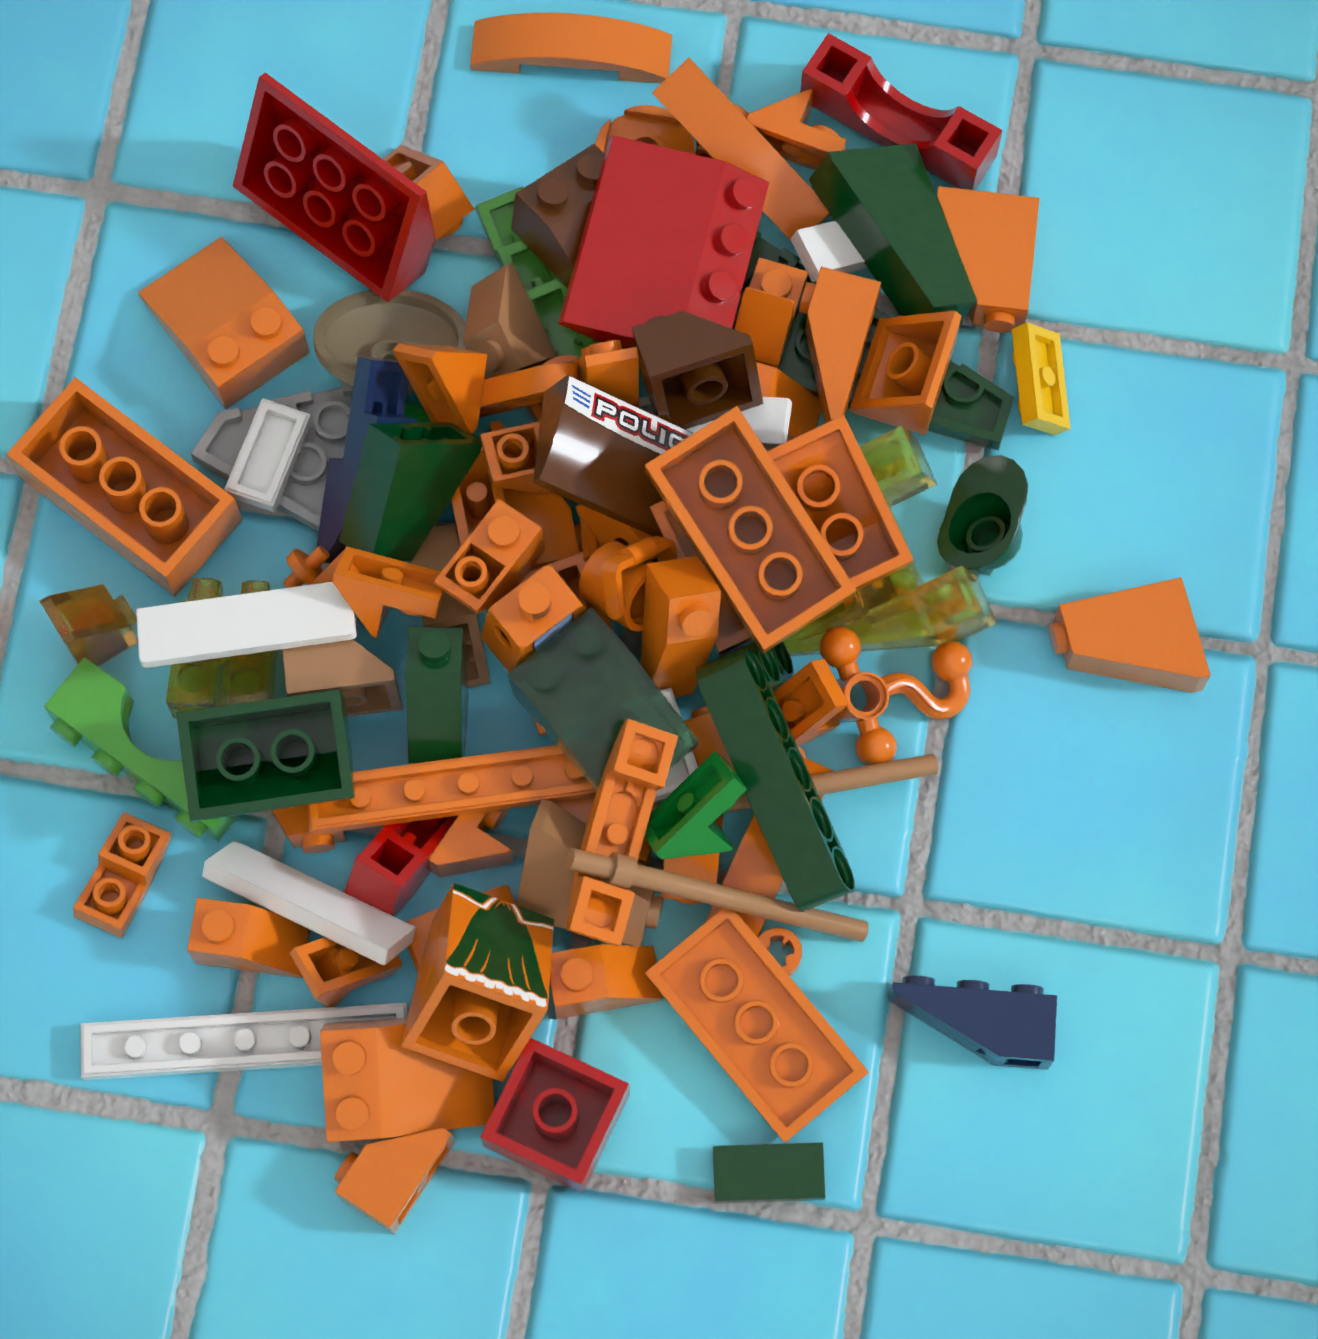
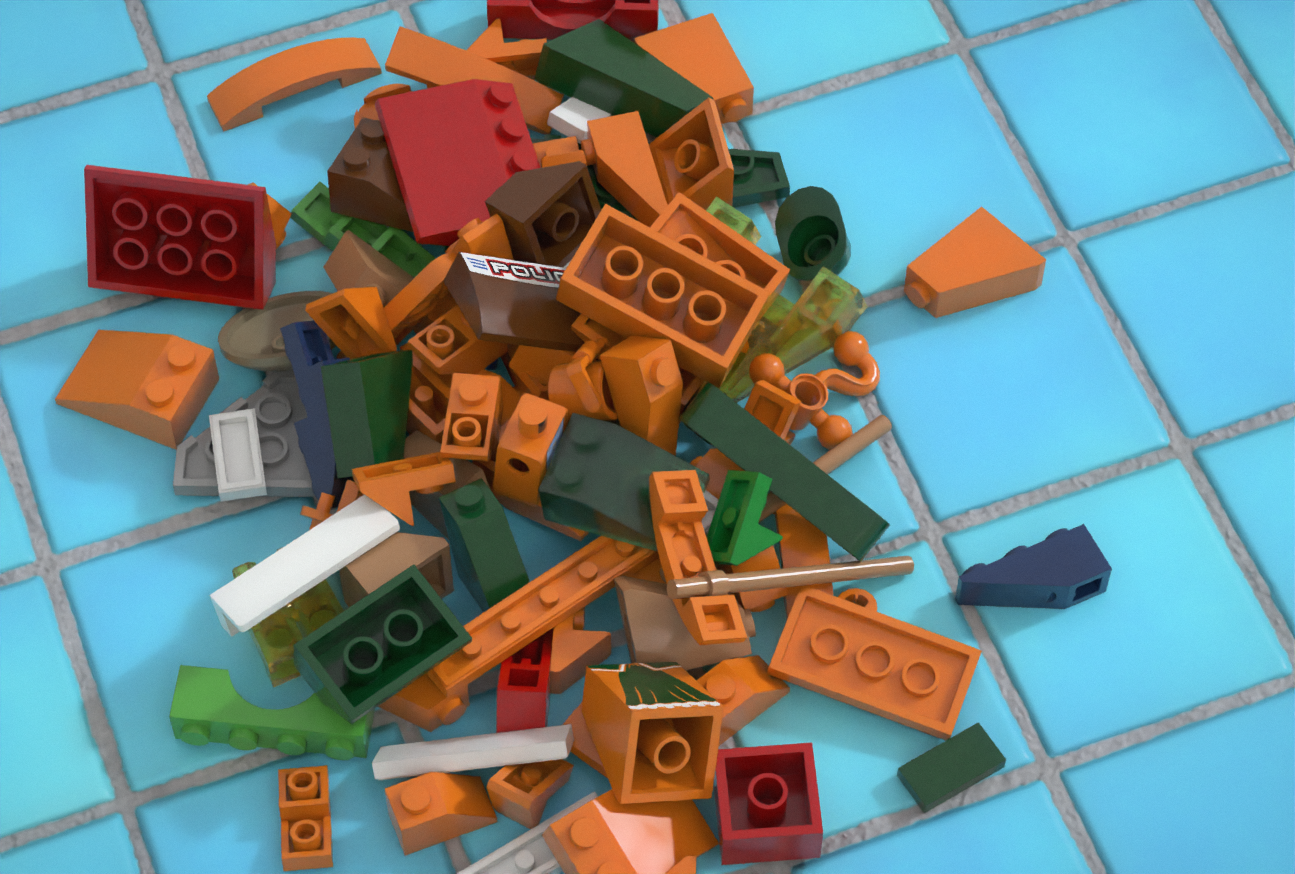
camera: 30 degrees left, 15 degrees down
(92, 622) = (165, 641): clear orange slope -> none
(125, 486) = (134, 531): orange brick -> none
(1040, 379) = (782, 125): yellow plate -> none

